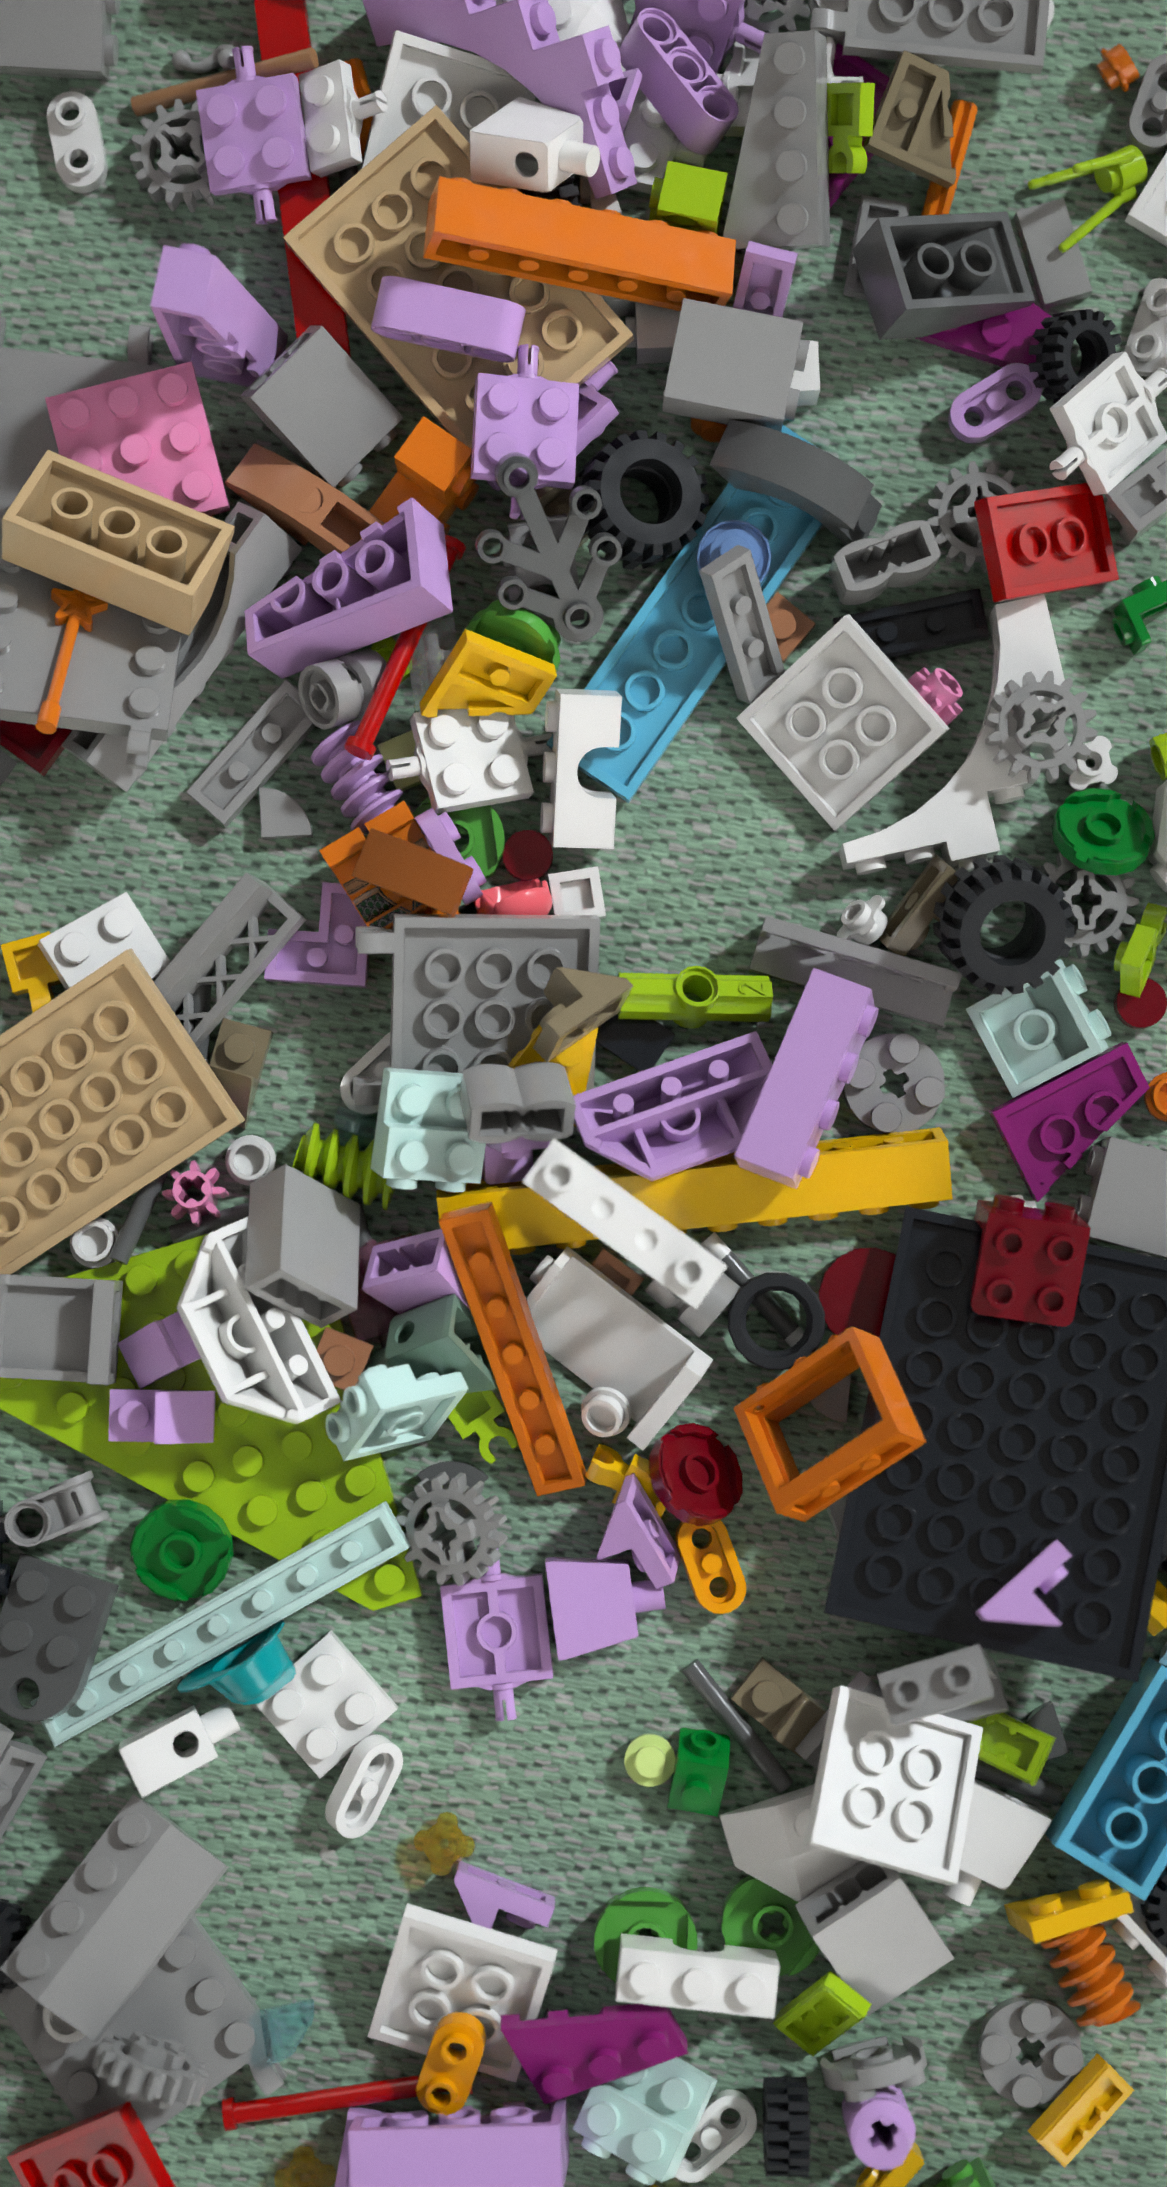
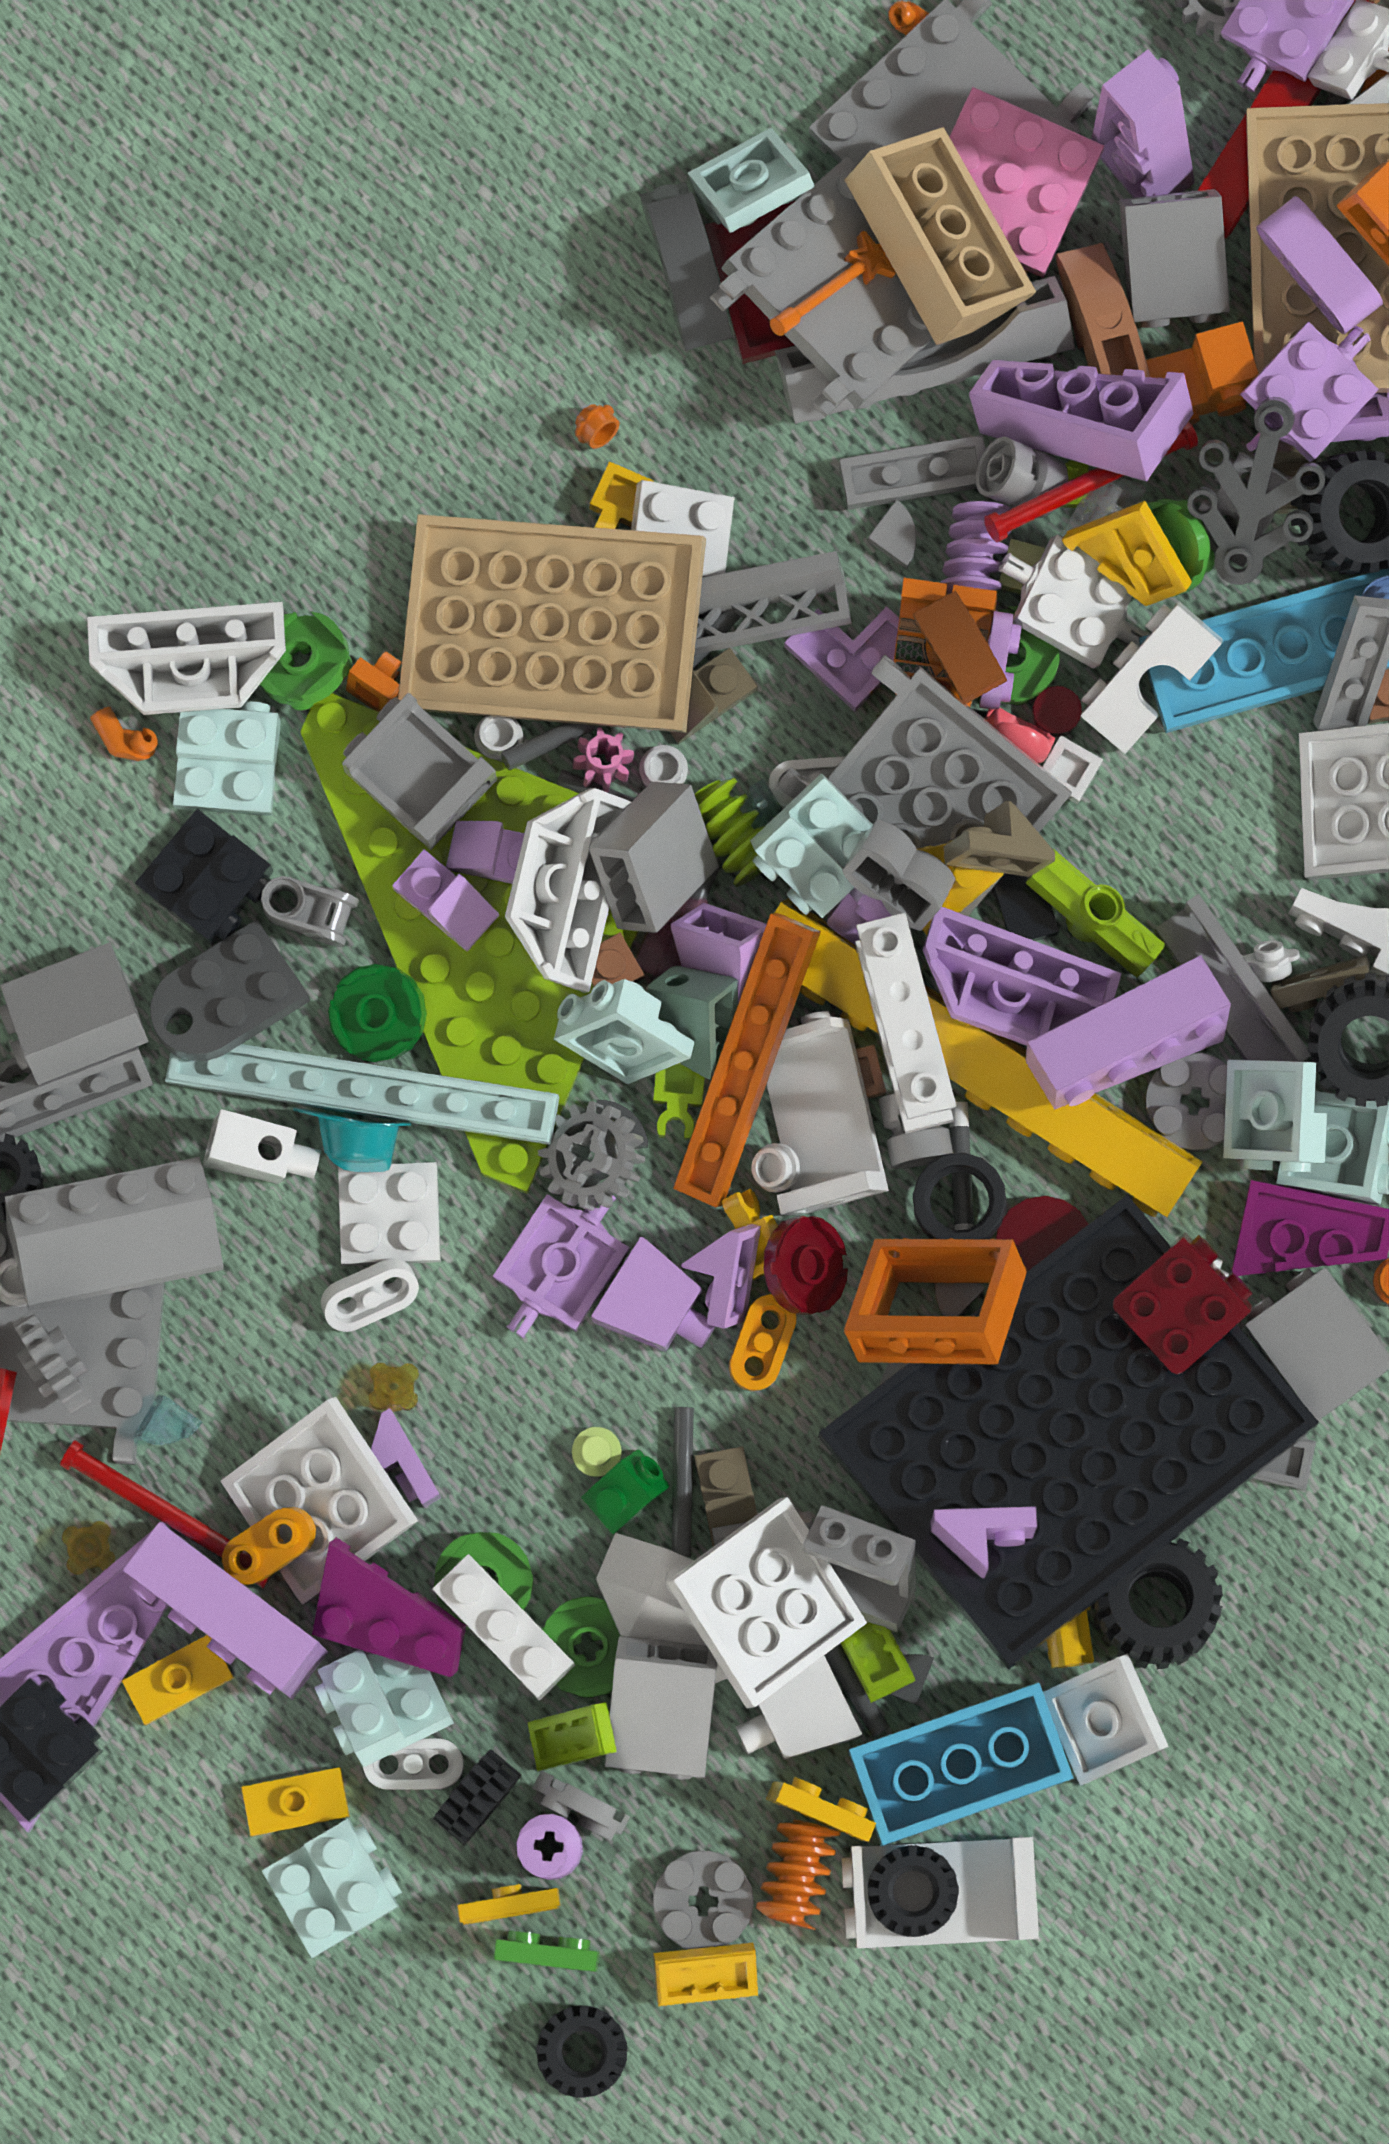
camera: 40 degrees right, 5 degrees down
(972, 1048) = (1273, 1115): none -> light aqua plate

